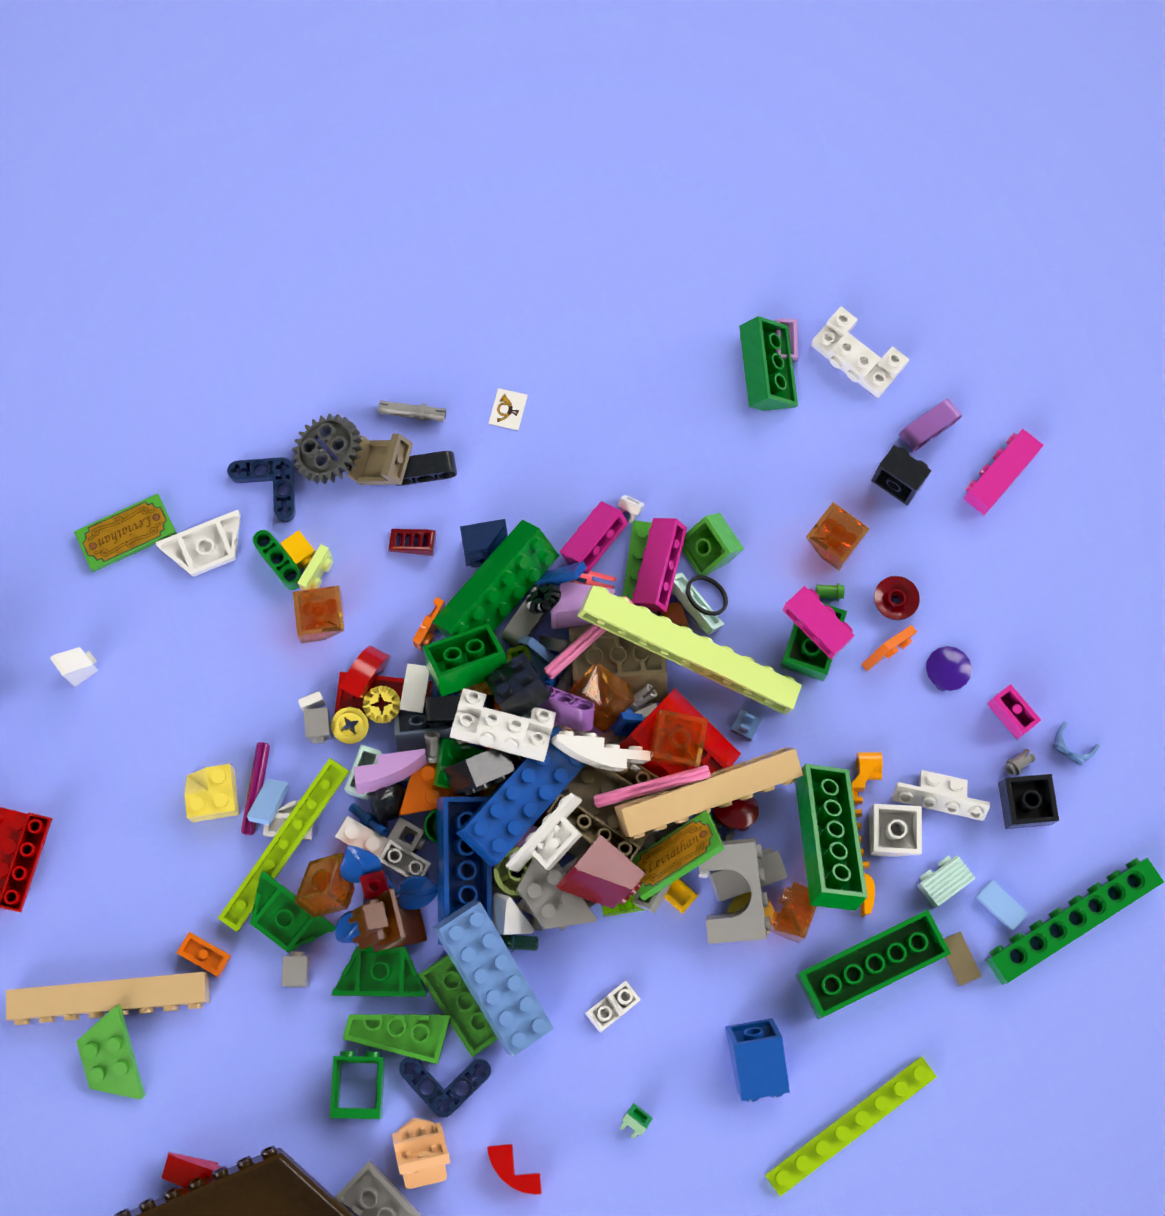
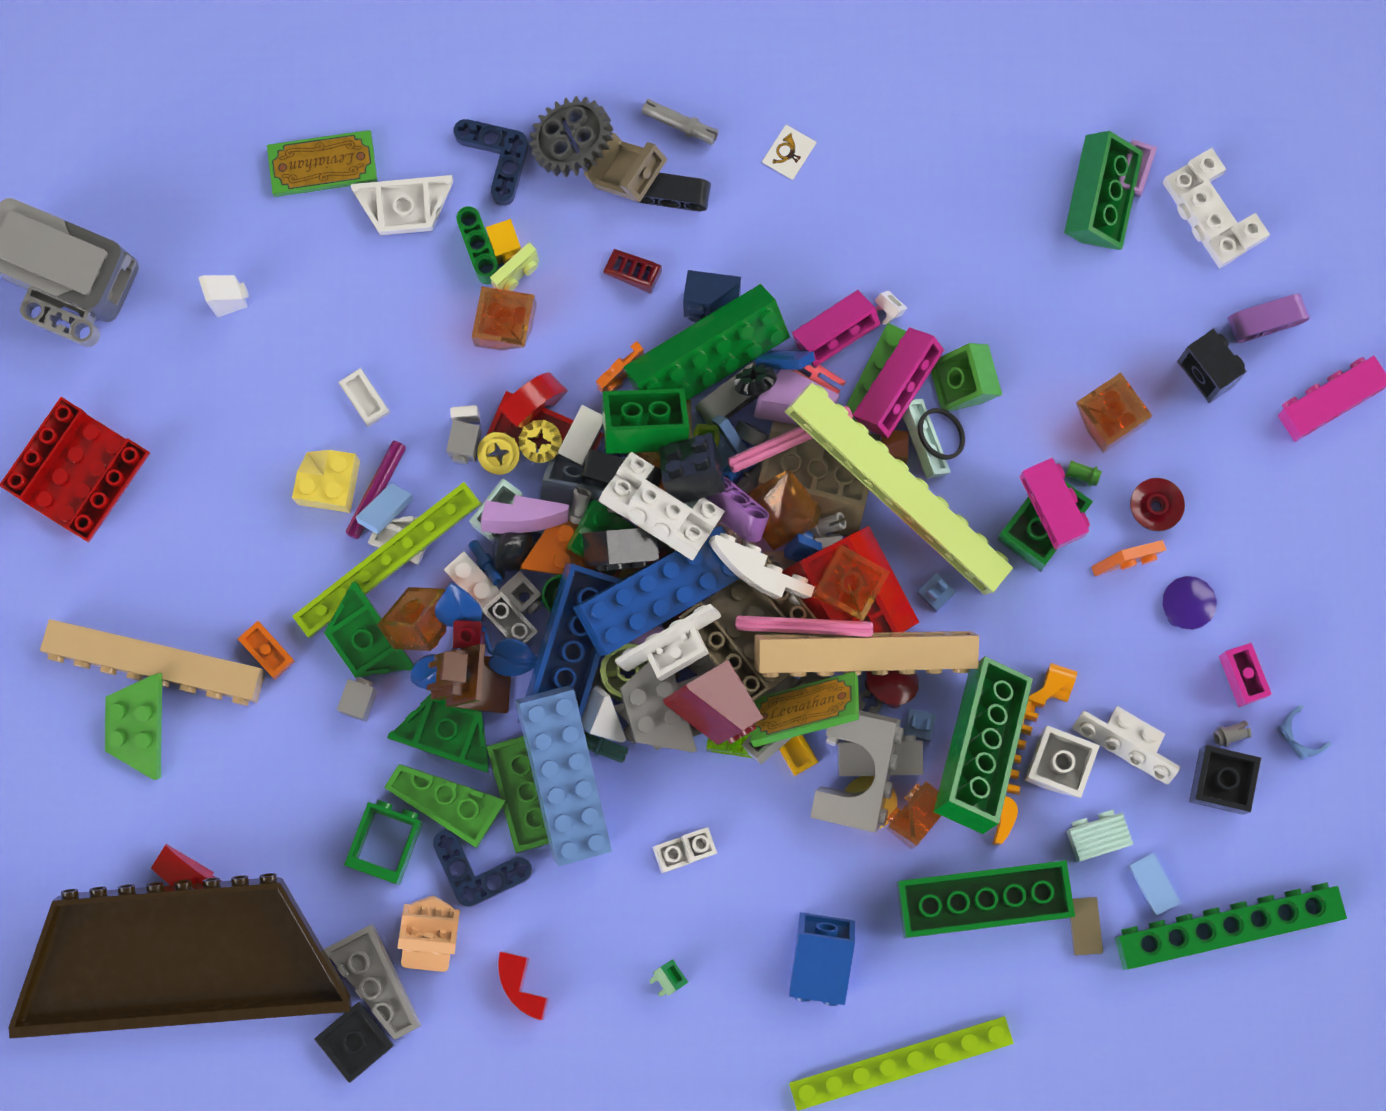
camera: 25 degrees right, 5 degrees up
(221, 714) = (364, 397): none -> white tile
(770, 836) = (920, 724): none -> medium blue tile

